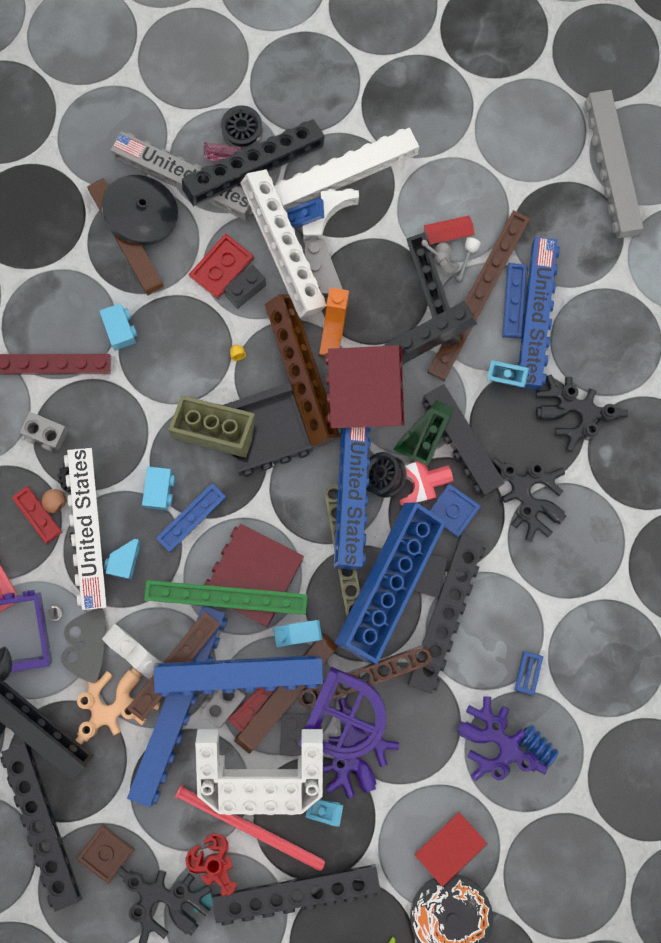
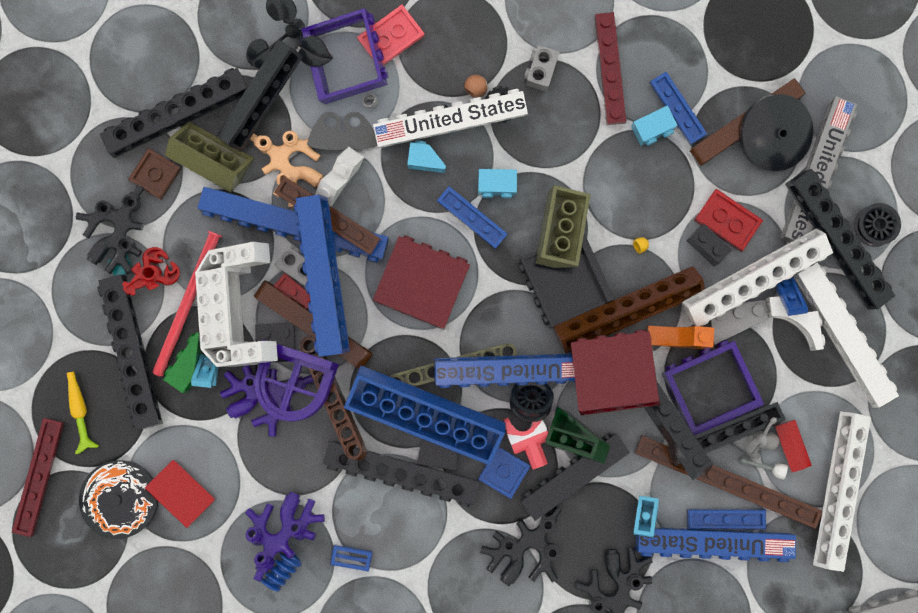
camera: 85 degrees right, 5 degrees up
(37, 515) = (461, 71): red tile -> none
(91, 306) = (682, 113): none -> blue plate
(93, 792) = (208, 156): none -> olive slope
(218, 151) = (848, 200): clear pink plate -> none
(226, 597) = (396, 258): green plate -> none
(297, 633) = (368, 330): medium azure slope -> none
(322, 835) = (182, 371): none -> green slope
(415, 288) = (726, 416): none -> dark purple window
(496, 190) = (842, 491): none -> white brick

